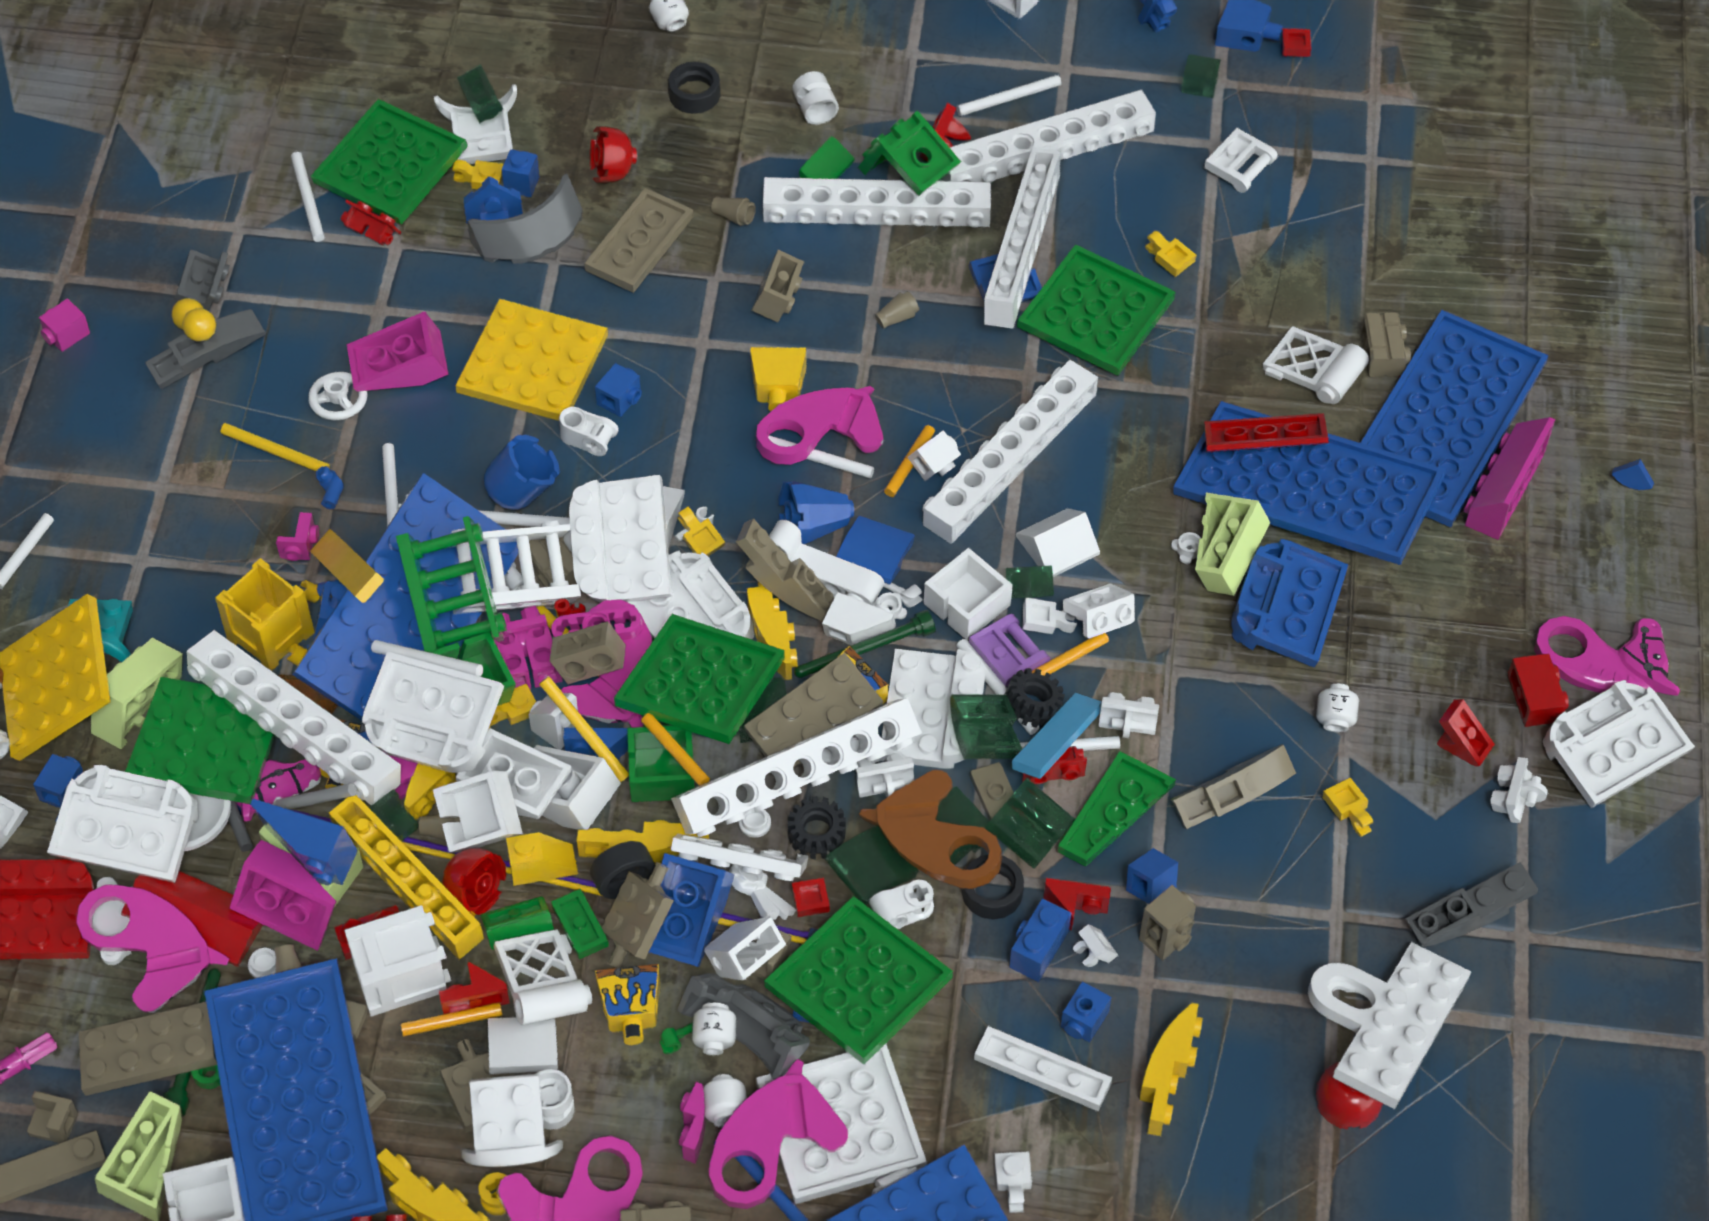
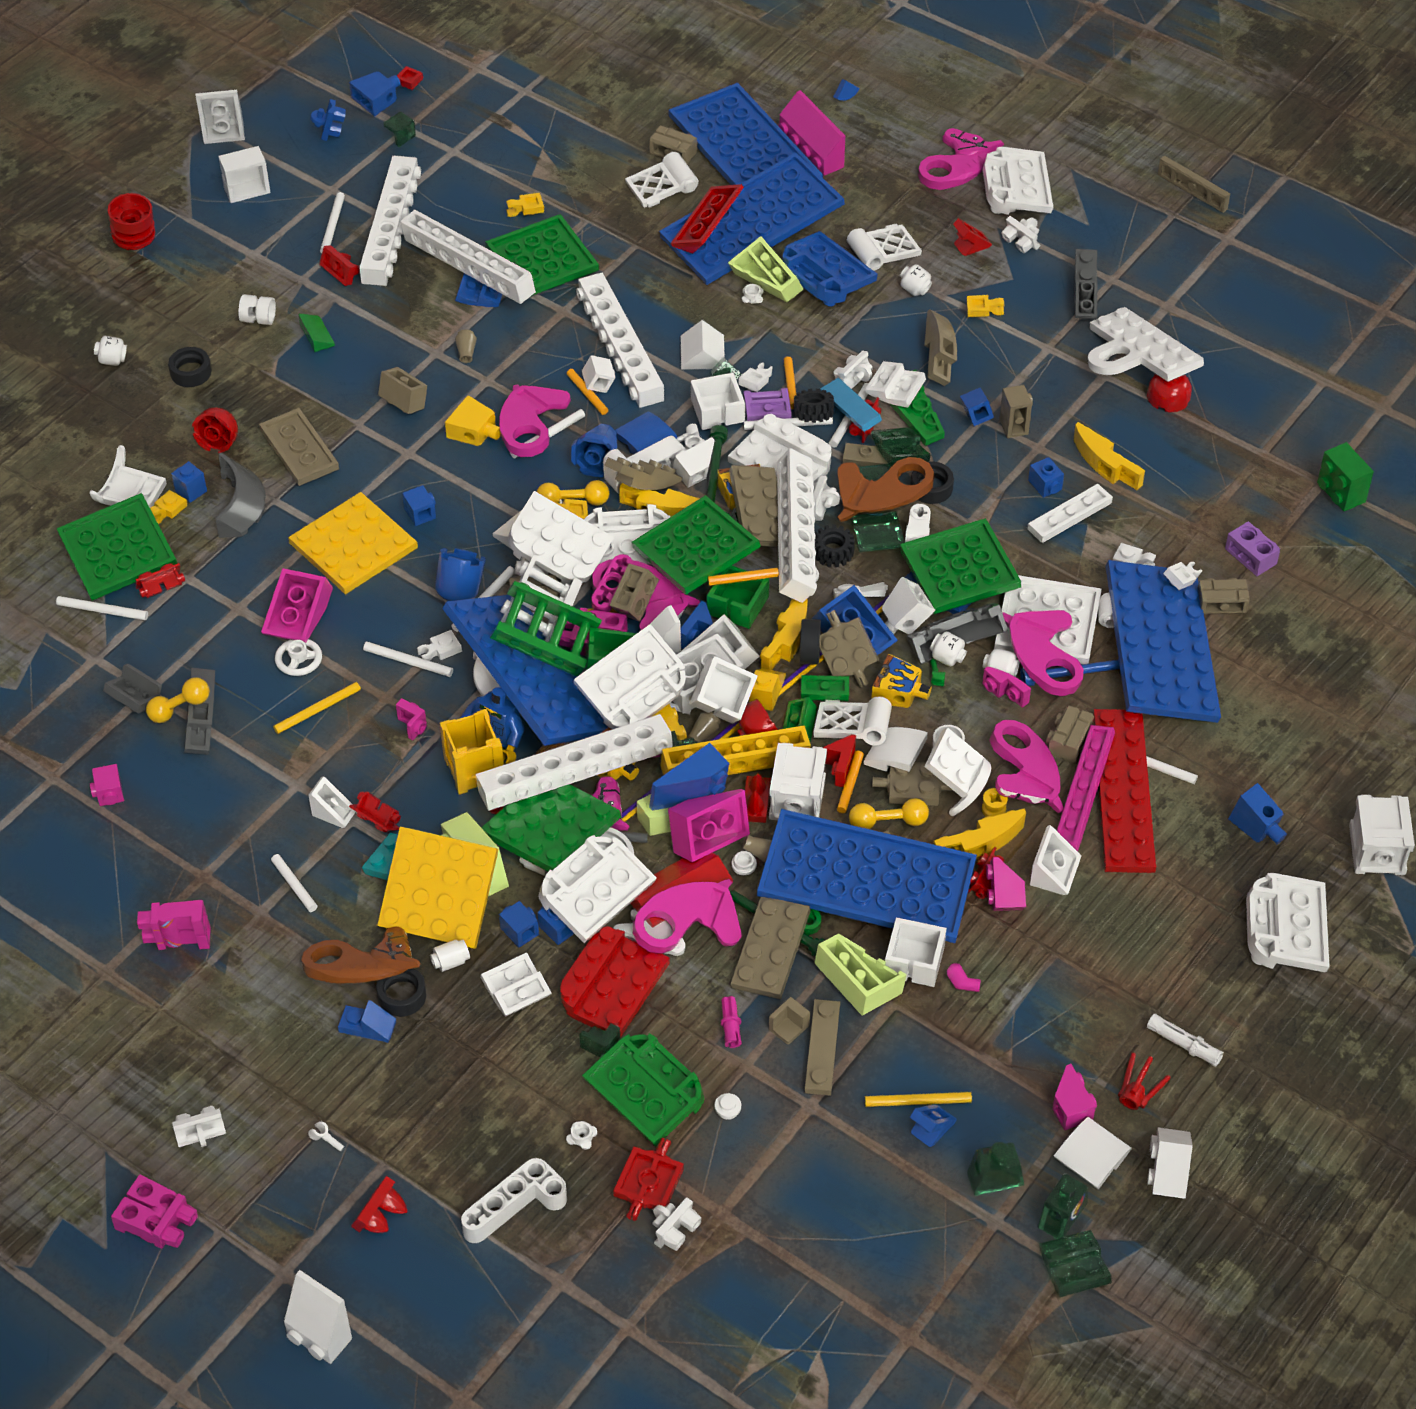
camera: 60 degrees left, 5 degrees down
(138, 526) = (330, 804): none -> white slope
(146, 573) = (383, 818): none -> red hinge
(317, 797) = (644, 777): light grey bar -> none
(331, 484) = (376, 686): blue arm -> none
(347, 566) = (478, 681): yellow tile -> none
(430, 1107) = (913, 812): none -> yellow piece
(448, 662) = (569, 681): white bar -> none
(480, 94) = (100, 473): clear green plate -> none
(492, 202) = (207, 507): blue plate -> none
(563, 607) = (583, 598): red arm -> none
(583, 727) = (690, 613): yellow bar -> none
(586, 430) = (439, 535): white piece -> none
(713, 502) = (595, 492): none -> yellow piece
(734, 209) = (314, 389): dark tan cone -> none
(772, 860) = (843, 576): white wing -> none
(810, 897) = (881, 569): red plate -> none
(876, 202) = (369, 319): white brick -> none
(900, 150) = (351, 271): green bracket -> none
(984, 726) = (818, 431): clear green slope -> none
(1039, 939) = (985, 475): blue brick -> none
(1078, 896) = (967, 450): red slope -> none
(1097, 944) = (1004, 452): white tile -> none
(1101, 609) = (770, 346): white bracket -> none
(1127, 767) = (895, 384): none -> white slope
(1234, 153) = (473, 145): white plate -> none
(1358, 630) = (872, 251): none -> white piece
(1537, 689) = (962, 195): red brick -> none

